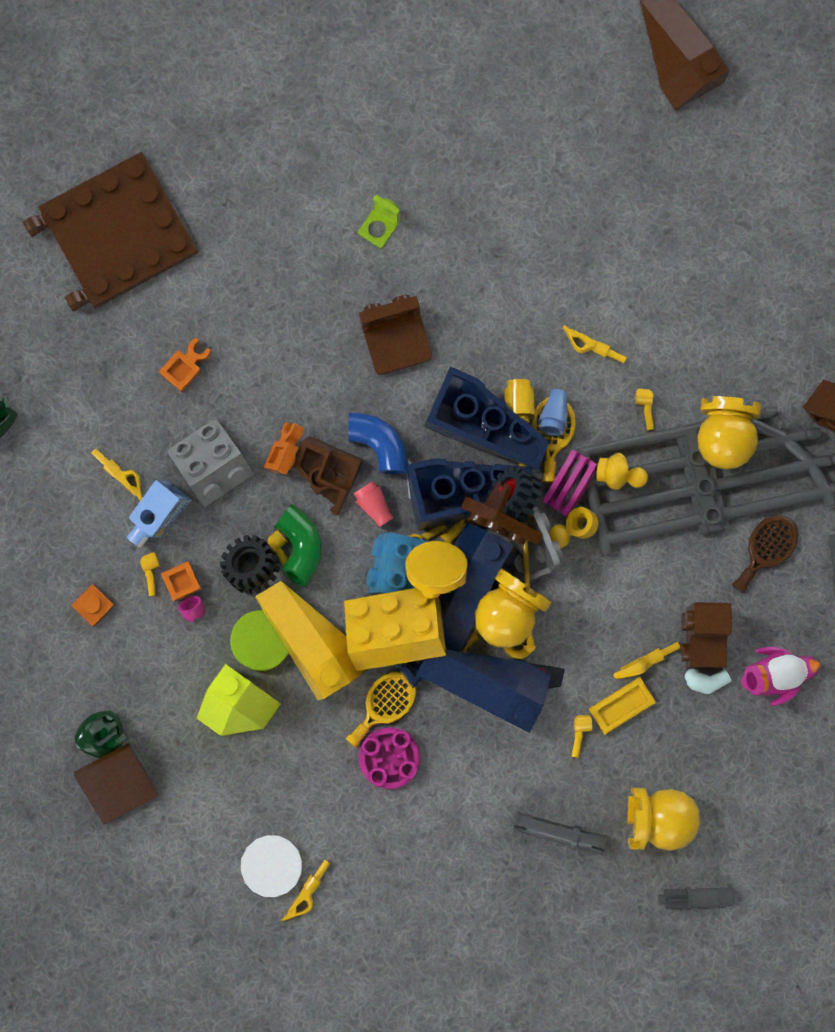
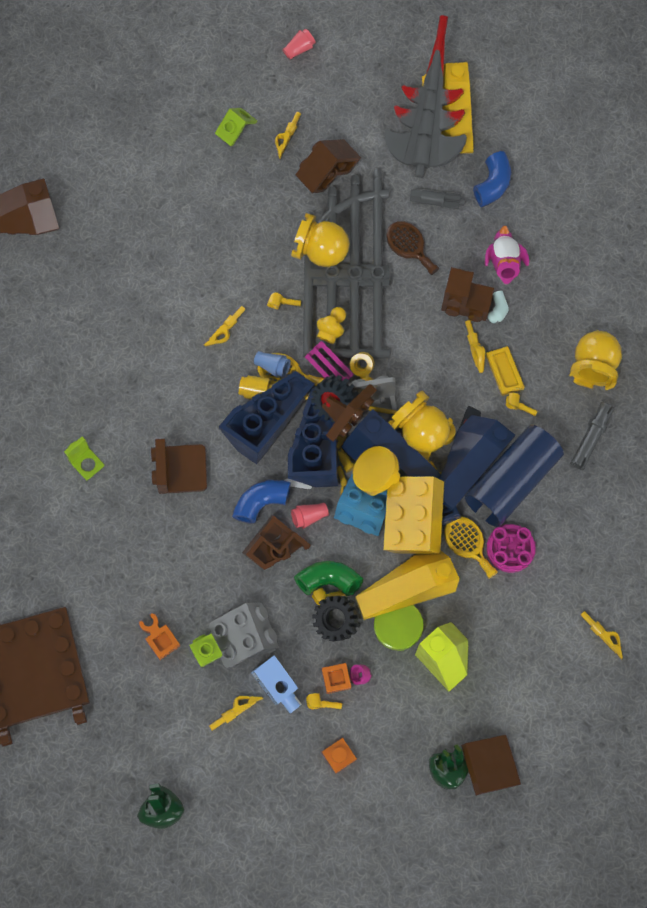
camera: 80 degrees left, 10 degrees down
(177, 421) = (205, 649): none -> lime bracket
(271, 866) = (578, 657): white tile -> none
(283, 451) = (251, 573): orange plate -> none
(478, 742) = (515, 474): none -> dark blue piece

